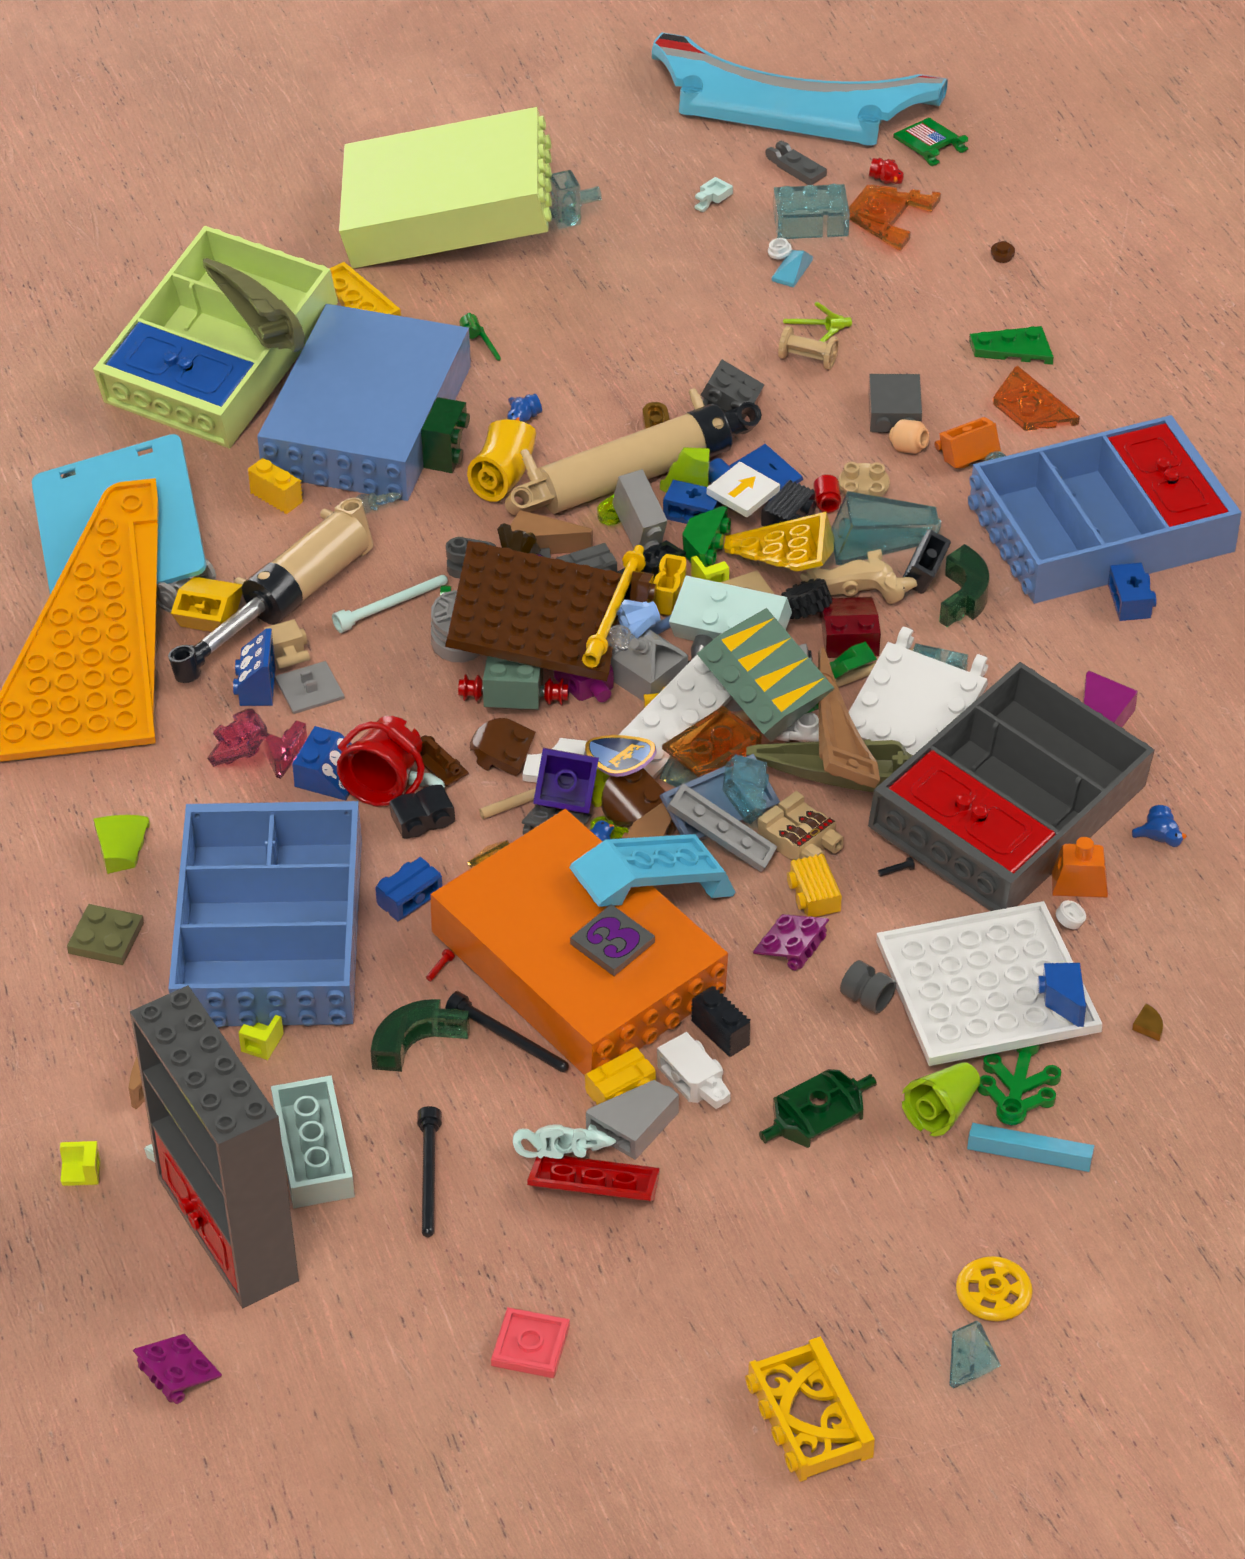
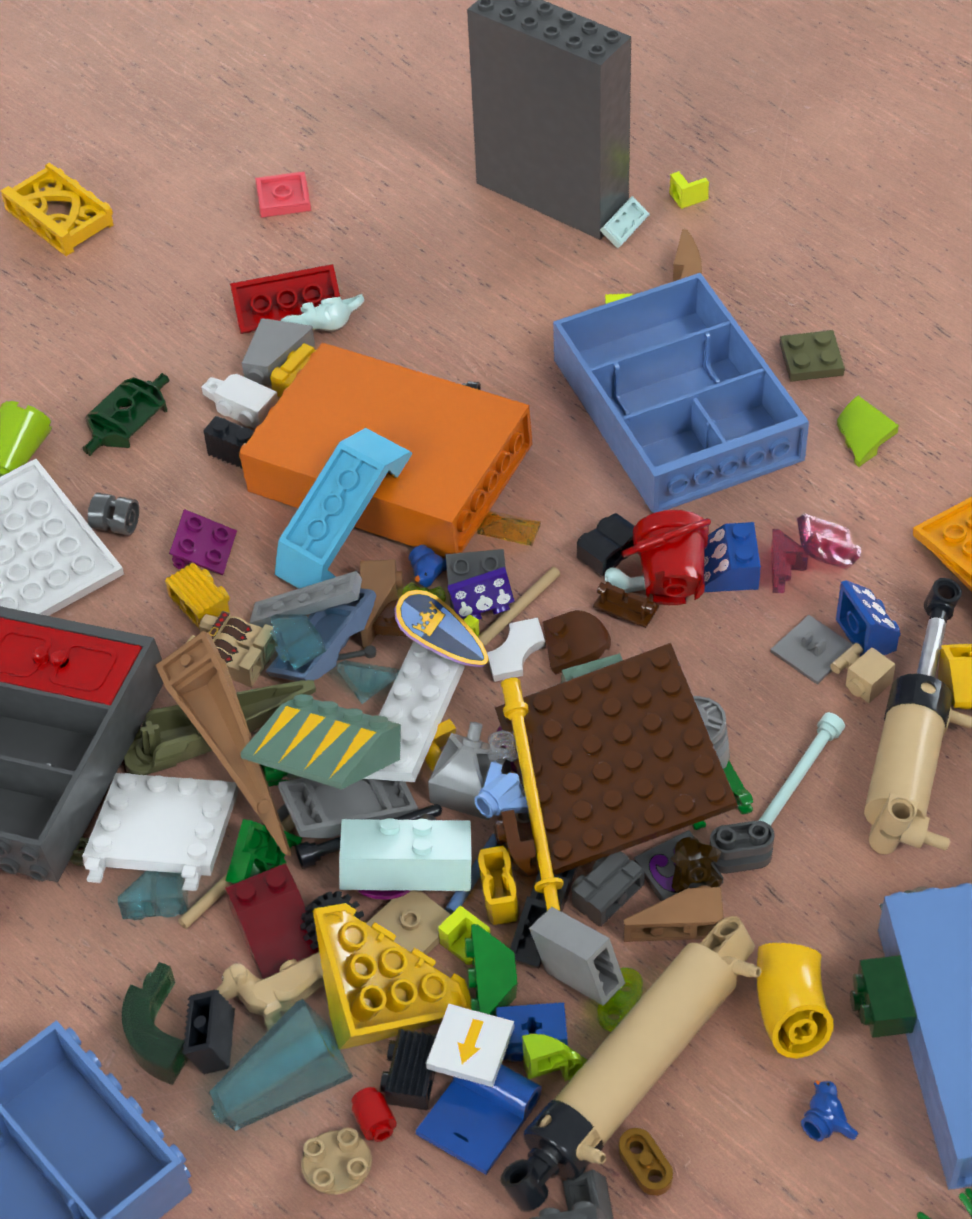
camera: 160 degrees right, 5 degrees up
(313, 1142) = (520, 247): light aqua brick -> none
(408, 888) = (575, 469): blue brick -> none
(410, 1025) = (497, 362): clear green arch -> none
(429, 1121) = (441, 299): black piece -> none
(612, 940) = (343, 416): dark grey tile -> none
(712, 742) = (359, 677): clear orange slope -> none

